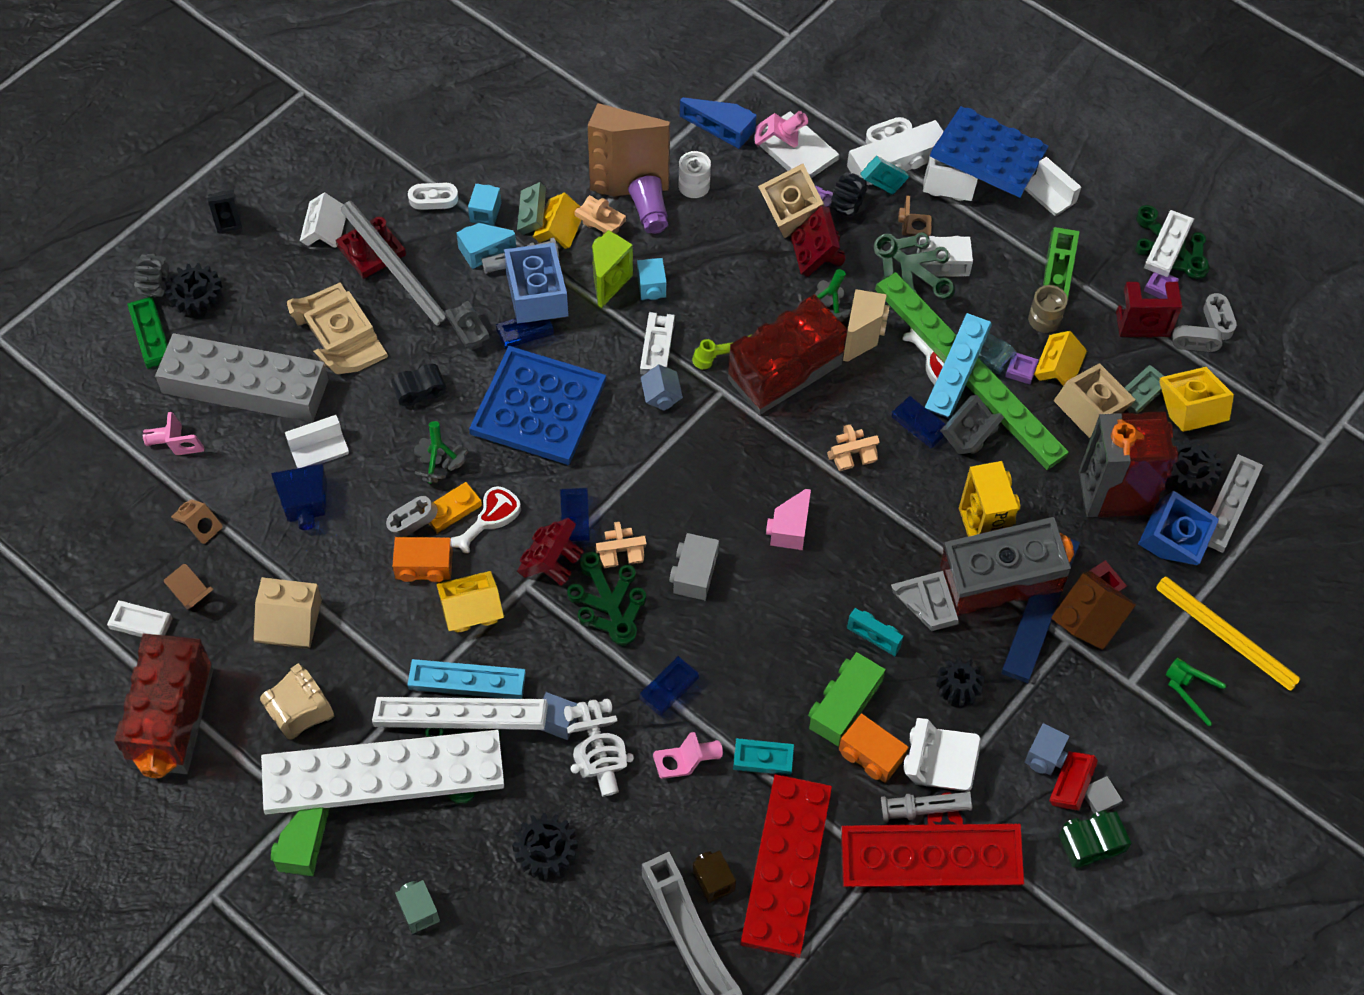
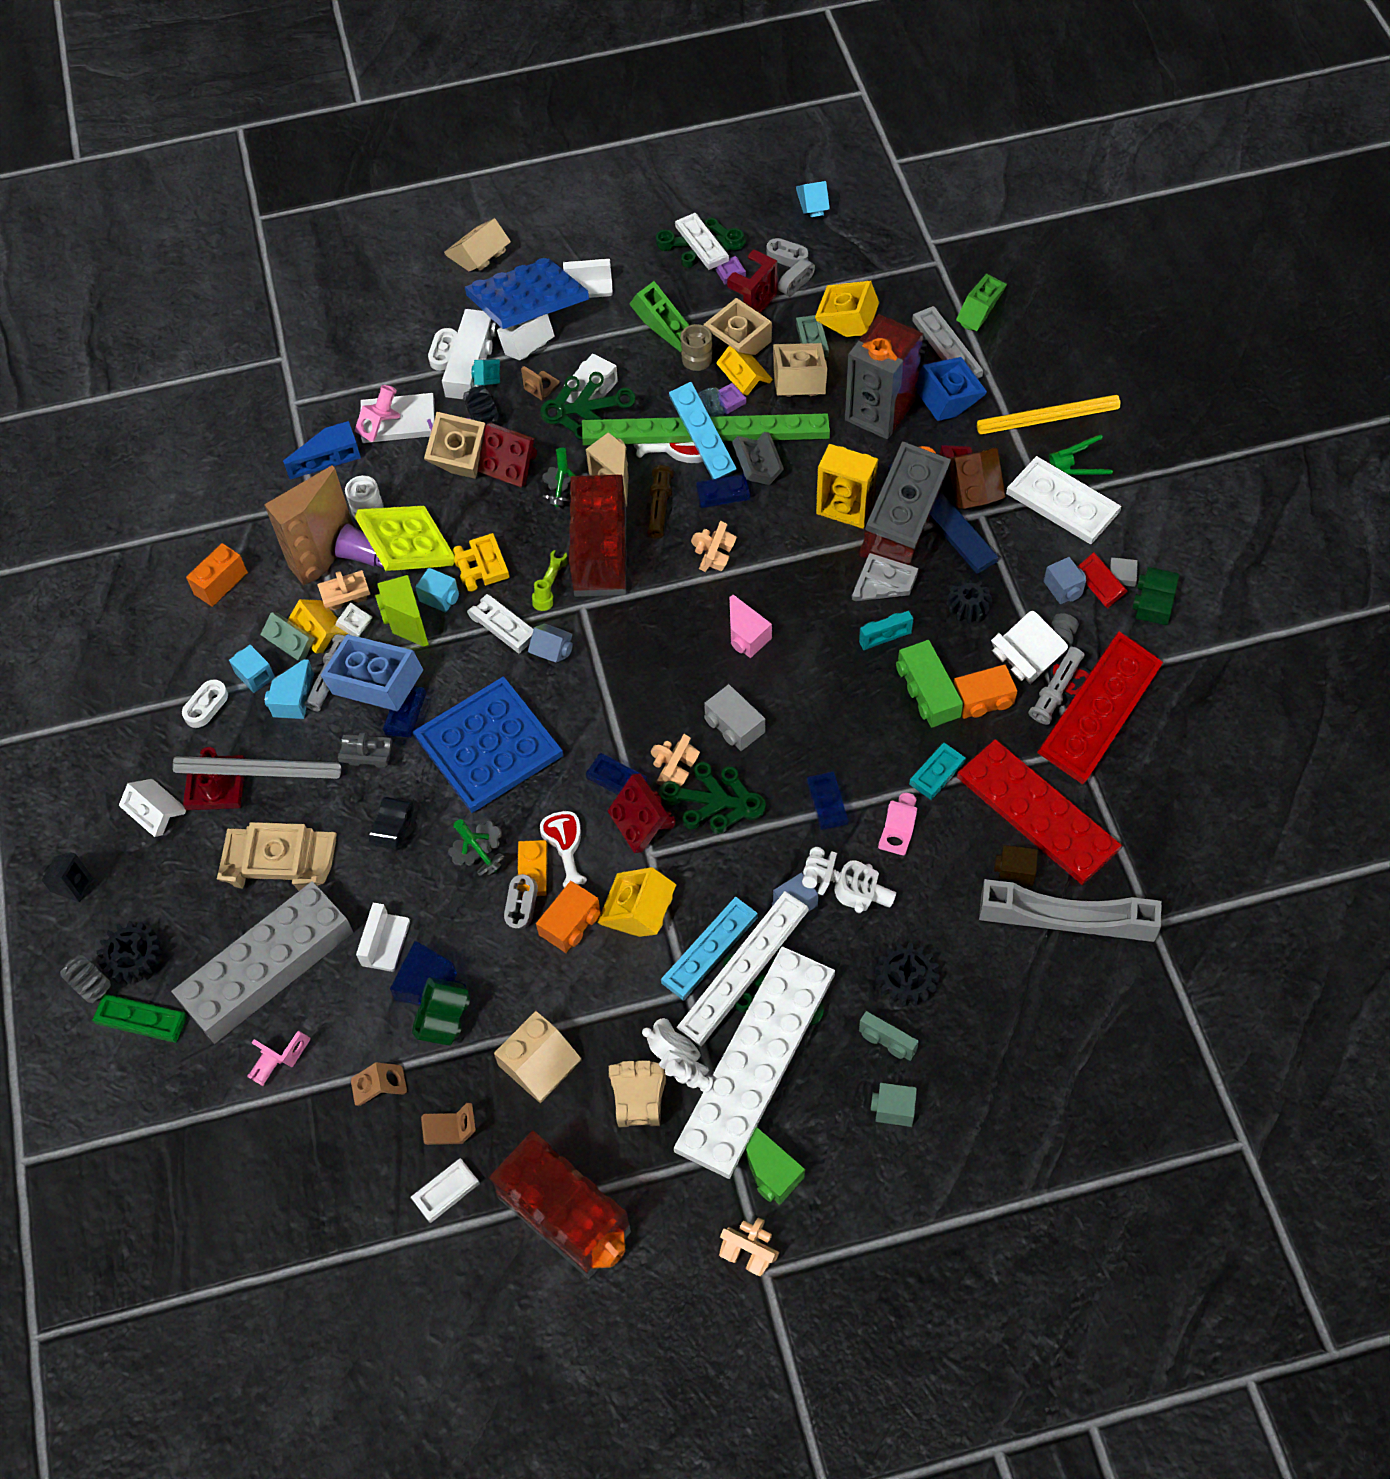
camera: 50 degrees left, 0 degrees up
(225, 864) = (736, 1241): none -> light nougat hips
(274, 519) = (440, 1011): none -> dark green brick
(345, 709) = (677, 1055): none -> white torso
(475, 853) = (897, 1042): none -> sand green plate
(548, 126) = (217, 574): none -> orange brick
(579, 242) = (353, 620): none -> white tile
(677, 224) = (405, 537): none -> neon yellow plate
(708, 297) = (488, 559): none -> yellow plate
(876, 376) = (660, 492): none -> dark brown pin
(989, 778) = (1065, 627): none -> dark grey wheel
(1013, 90) = (479, 246): none -> tan slope
(1092, 328) = (741, 327): none -> tan slope
(1138, 699) = (1063, 500): none -> white plate
(1298, 297) = (813, 198): none -> medium azure slope
(1305, 500) = (980, 302): none -> bright green slope

